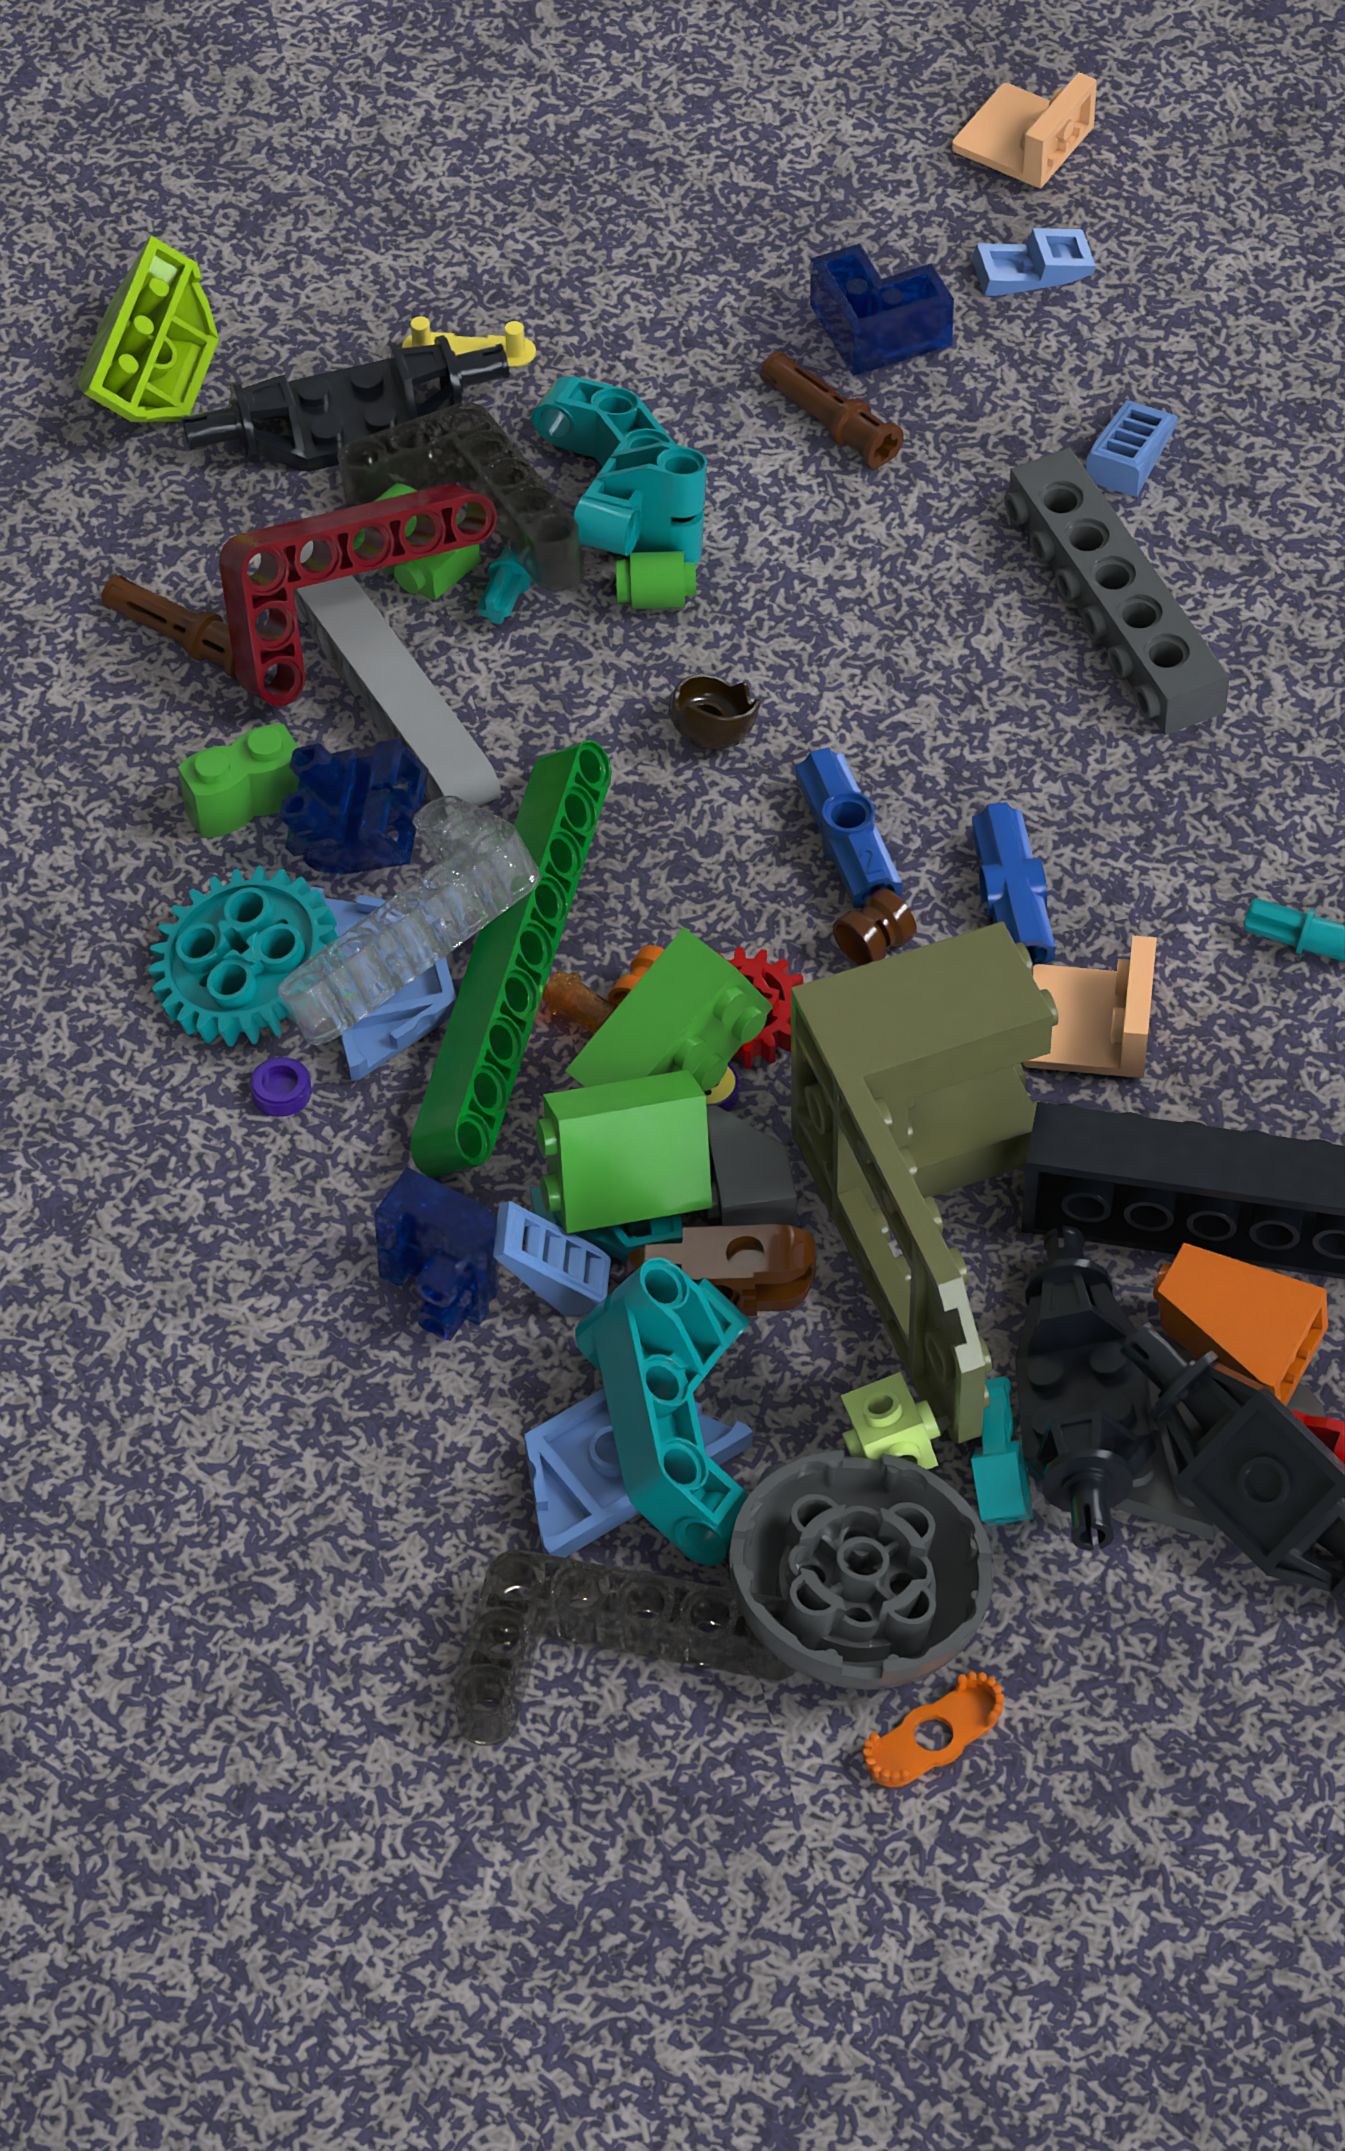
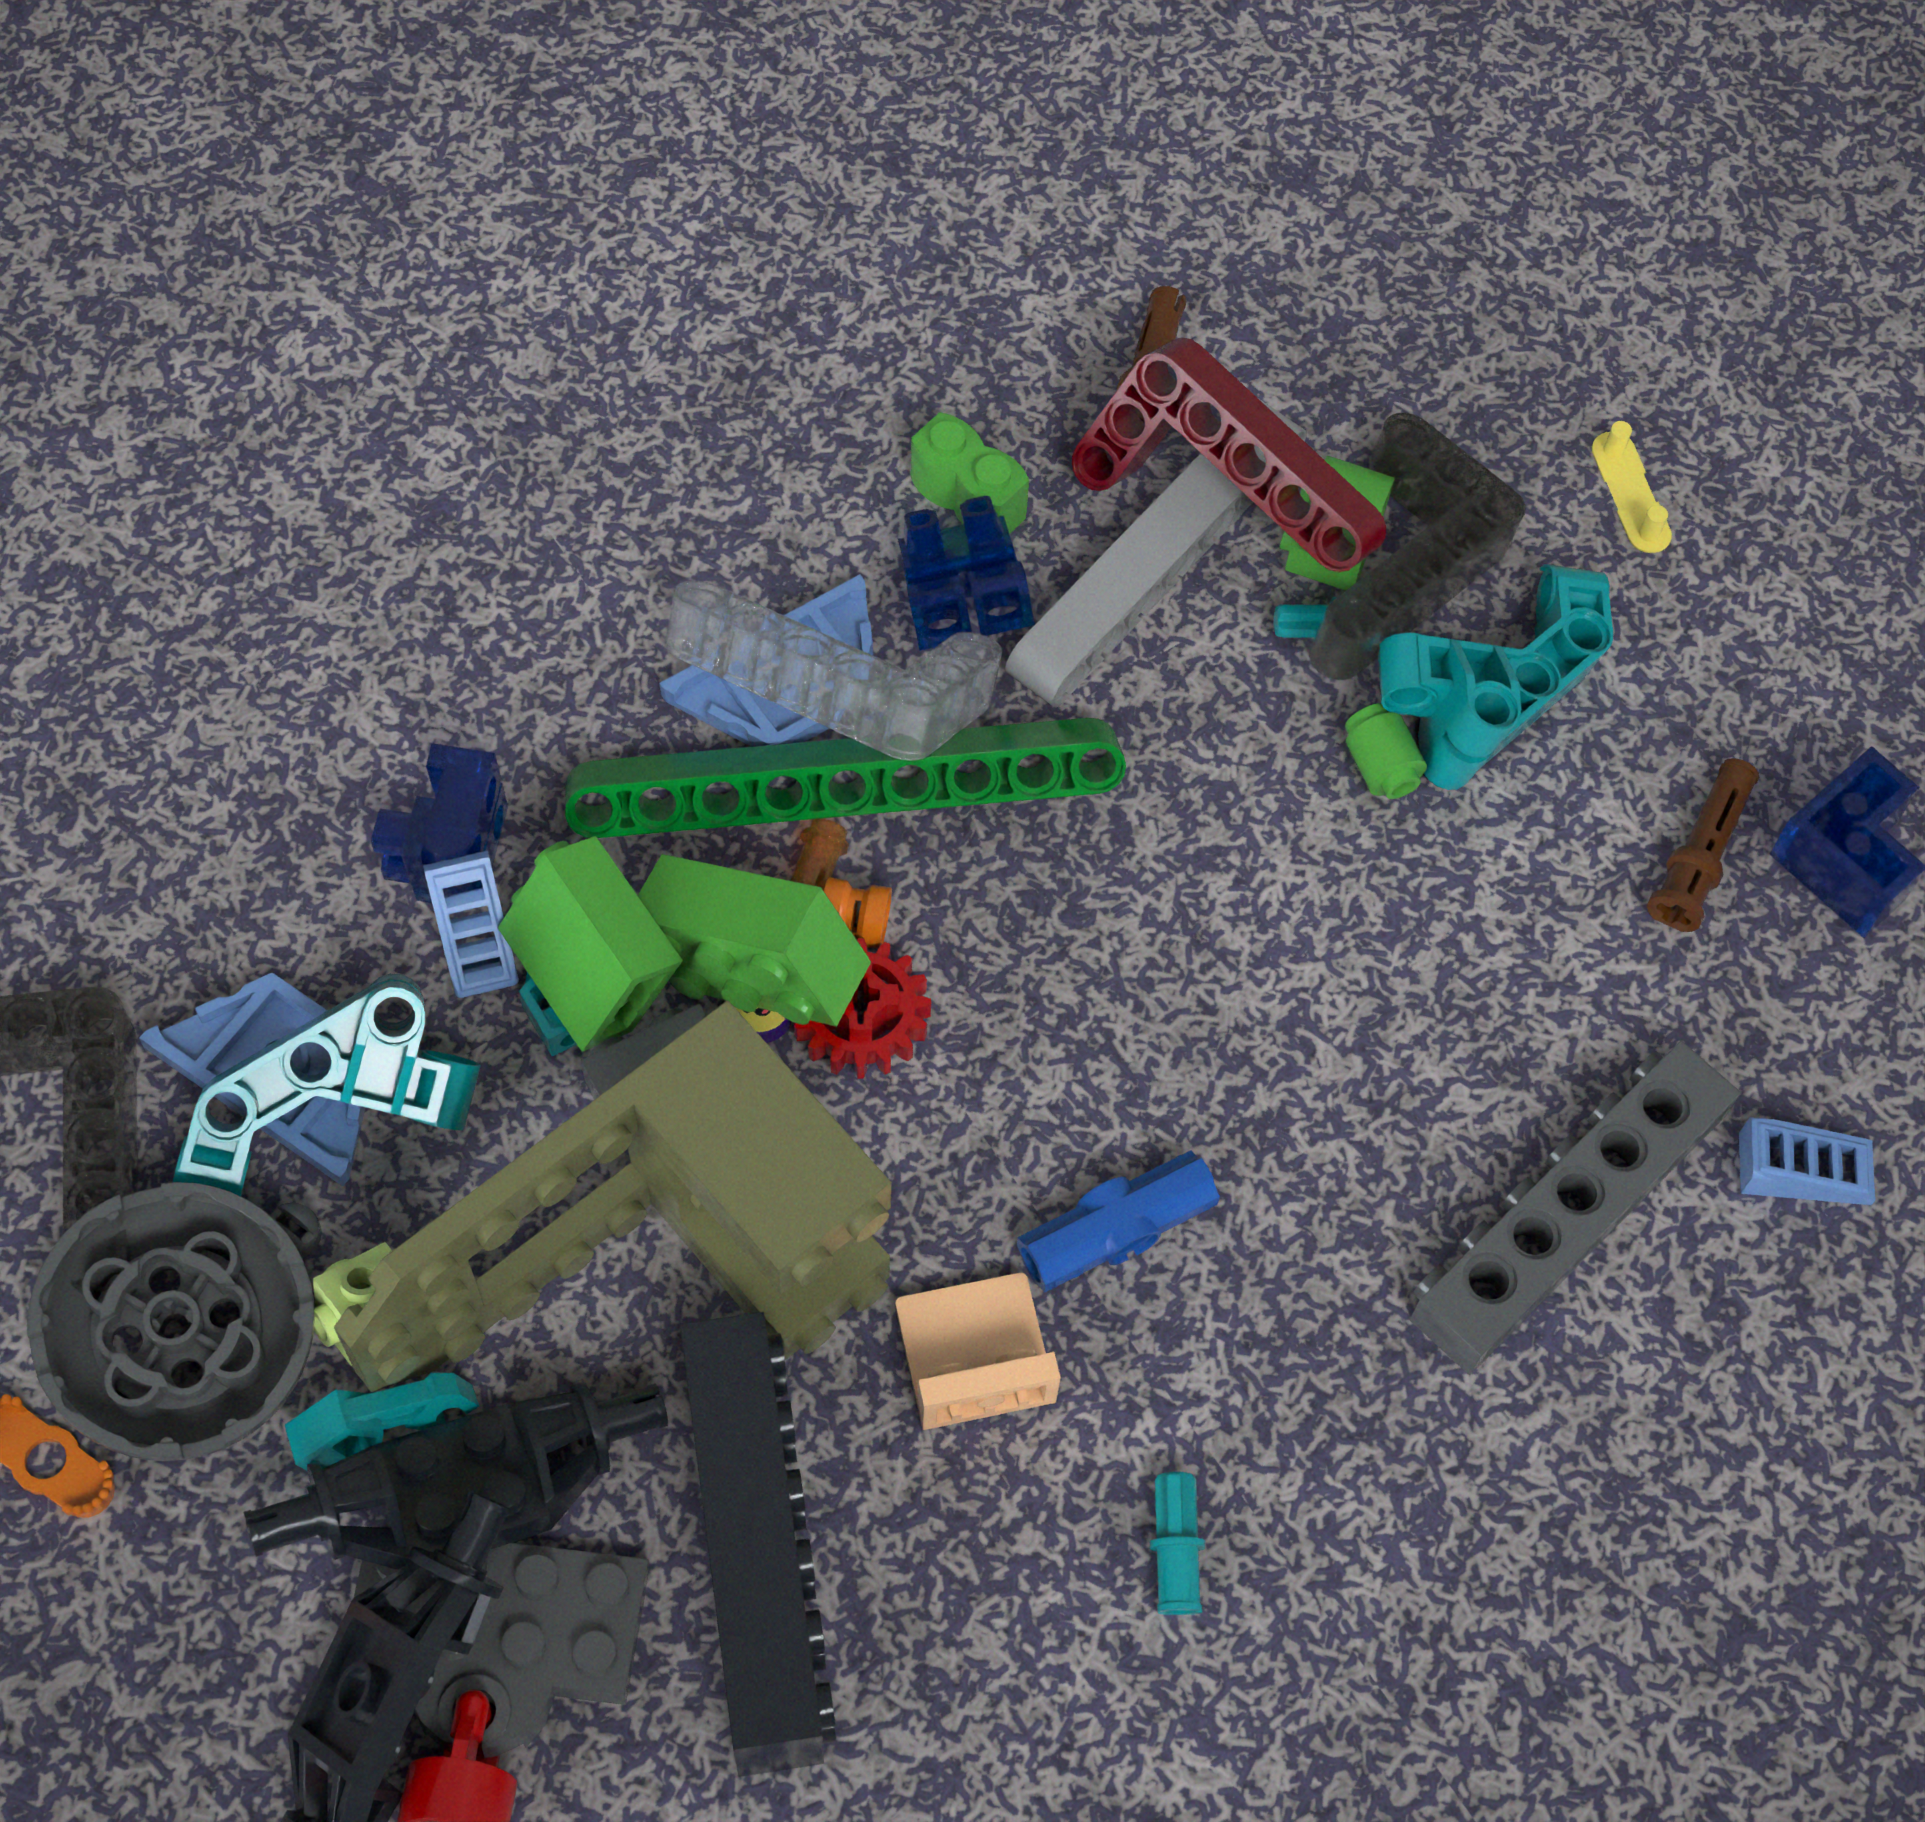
camera: 65 degrees right, 10 degrees up
(152, 340) = (1476, 217): lime wedge -> none
(241, 949) = (766, 544): teal gear -> none
(280, 1086) = (633, 639): dark purple tile -> none
(342, 404) = (1487, 403): black plate -> none
(712, 711) = (1232, 857): dark brown hair -> none
(749, 1264) = (519, 1080): reddish brown piece -> none
(846, 825) = (1101, 1058): blue piece -> none
(875, 928) = (1007, 1100): reddish brown wheel -> none
(1245, 1314) = (571, 1617): orange slope -> none

